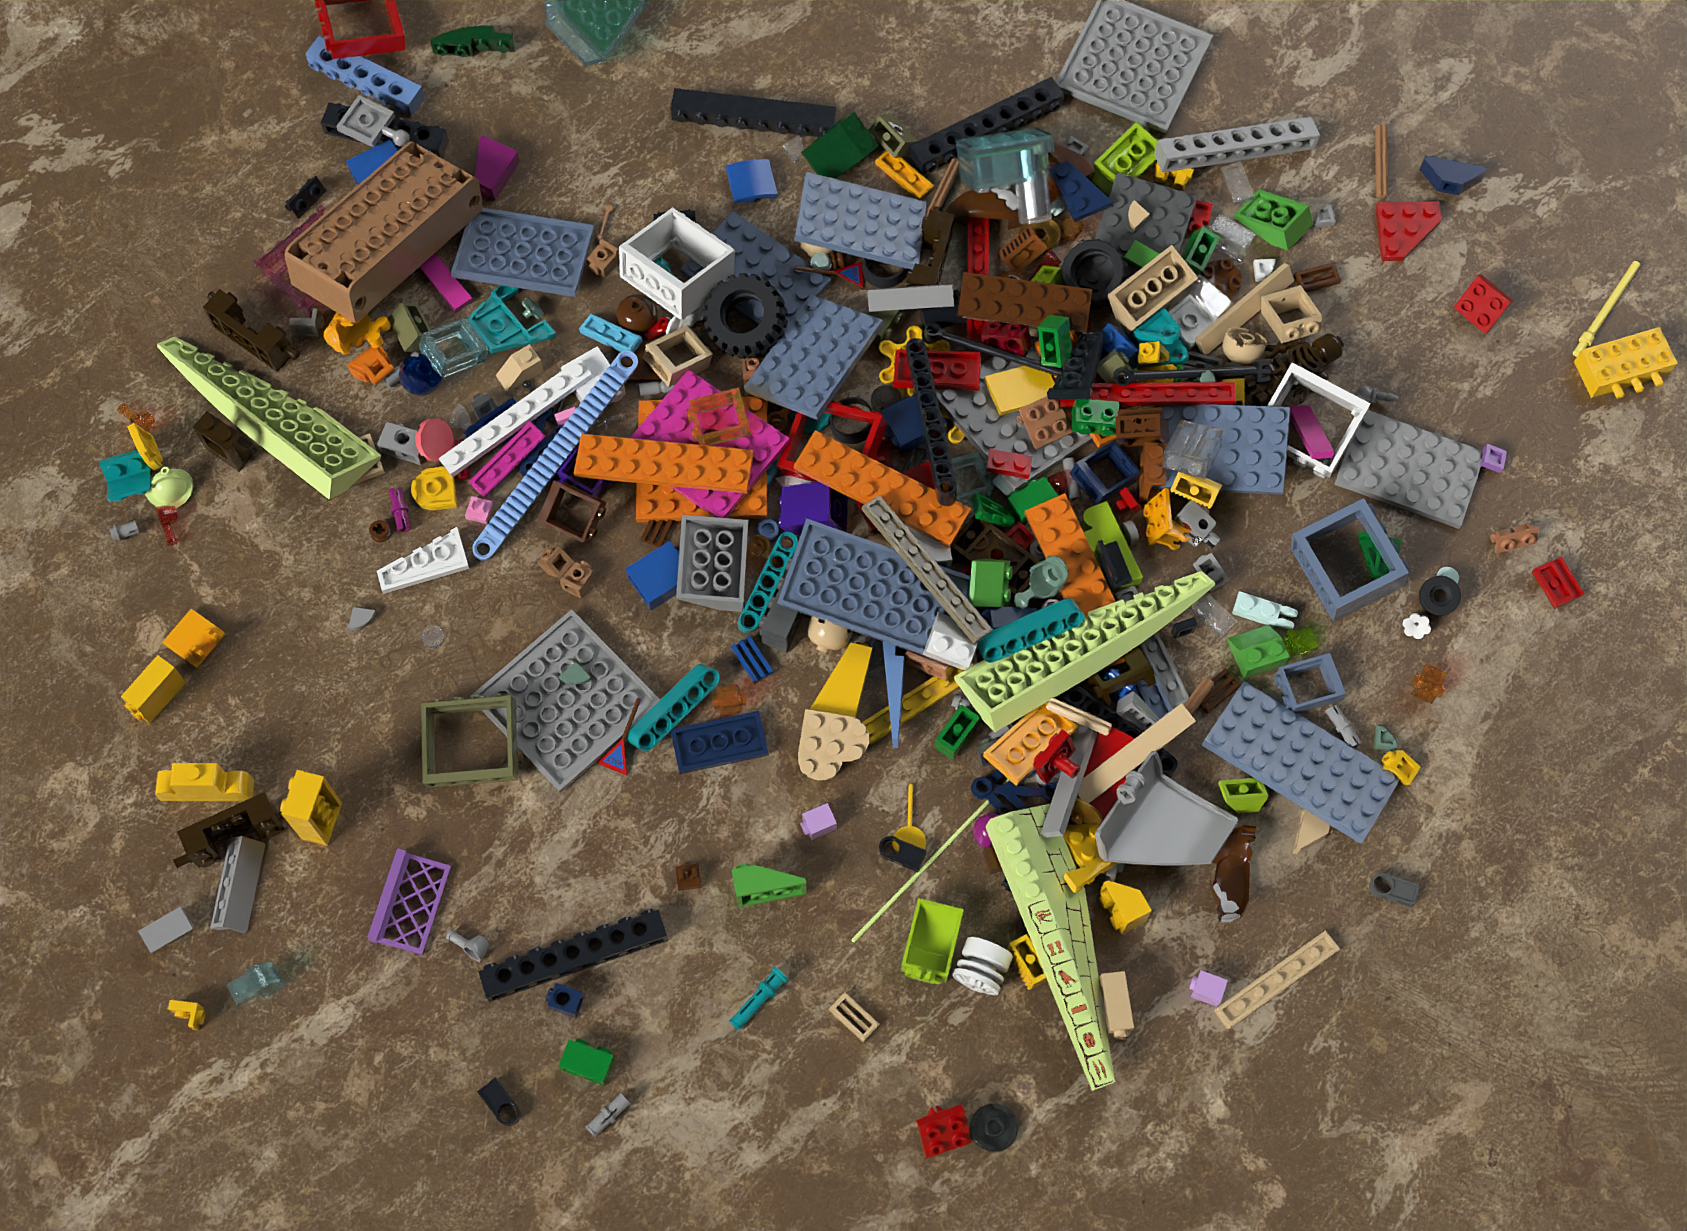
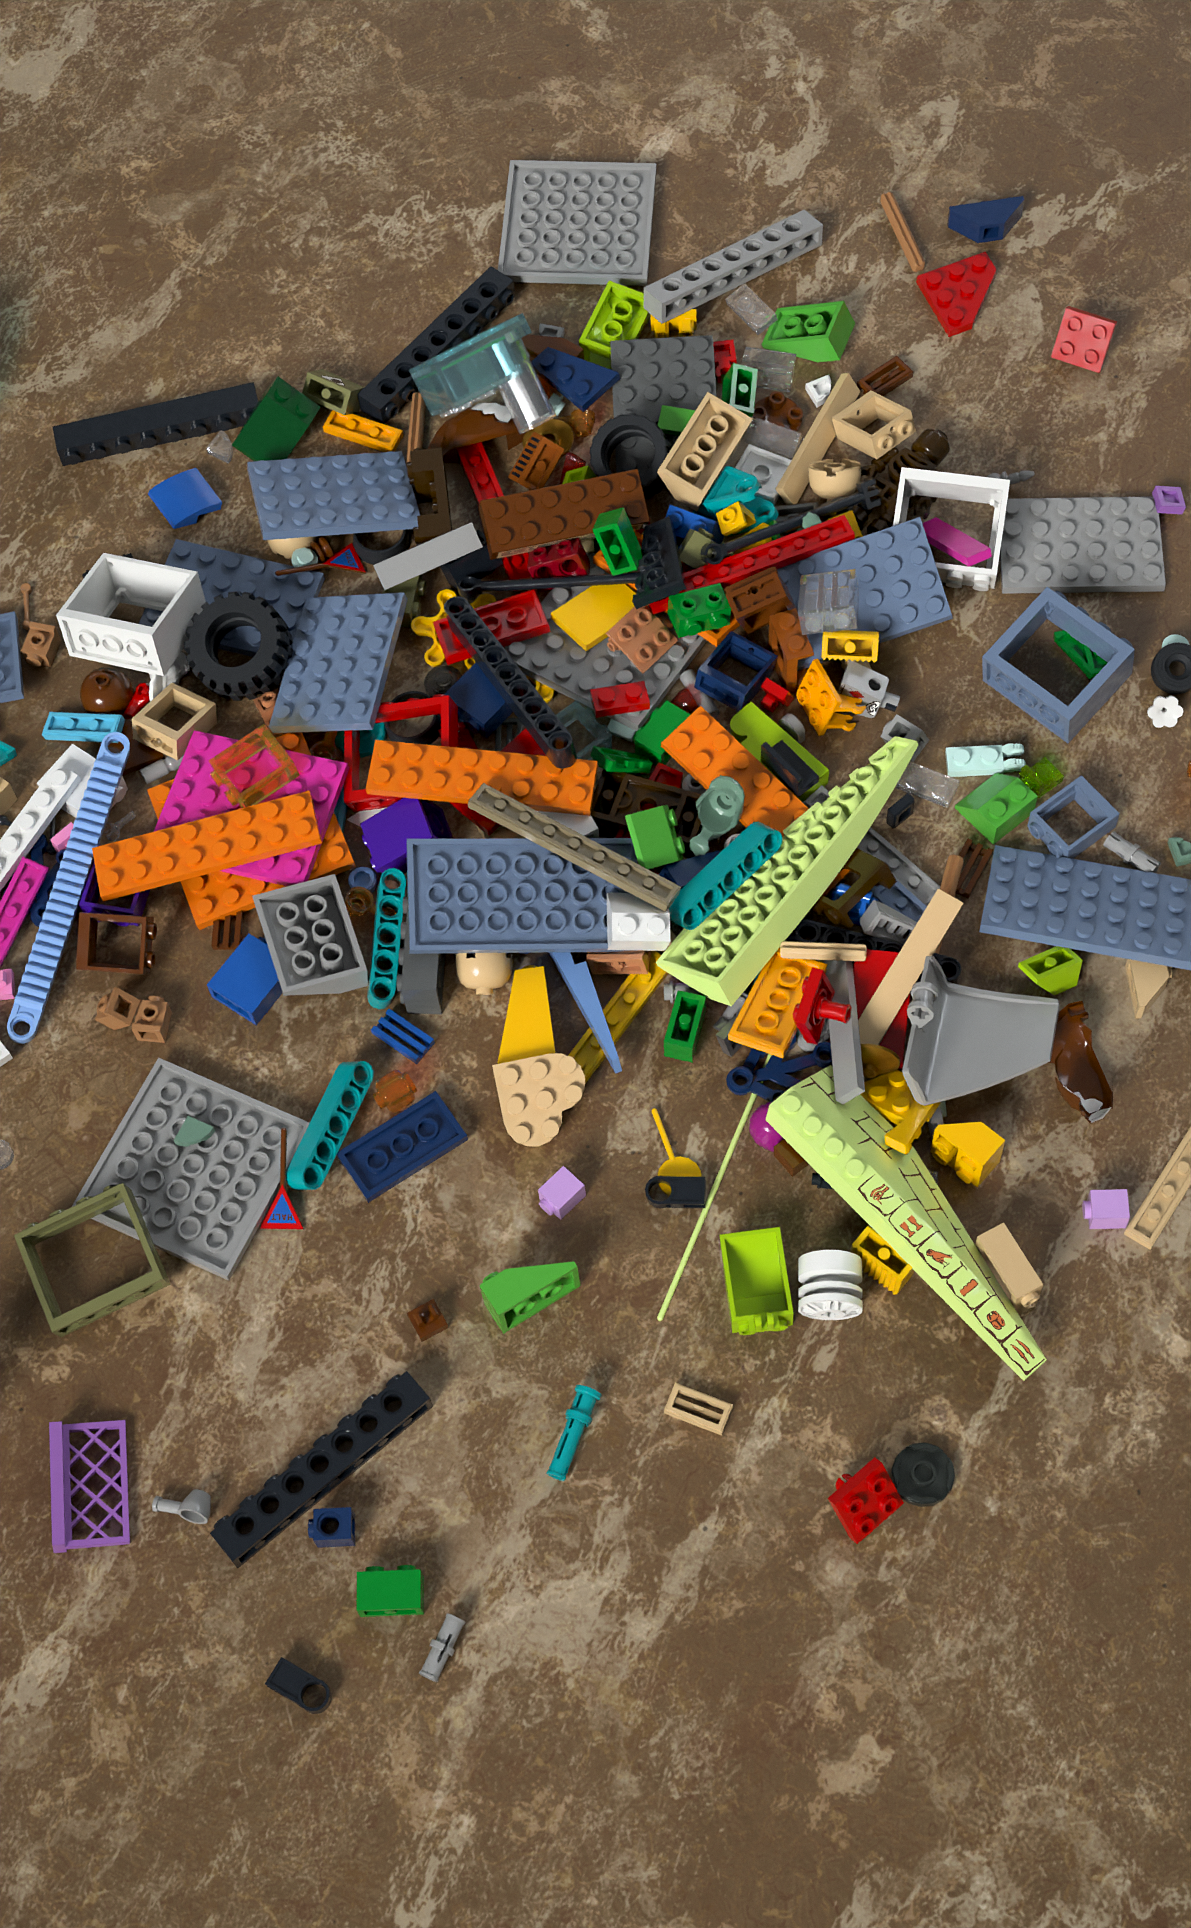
camera: 15 degrees left, 5 degrees down
(1136, 215) = (652, 378): tan tile -> none
(1325, 217) = (865, 312): light grey tile -> none

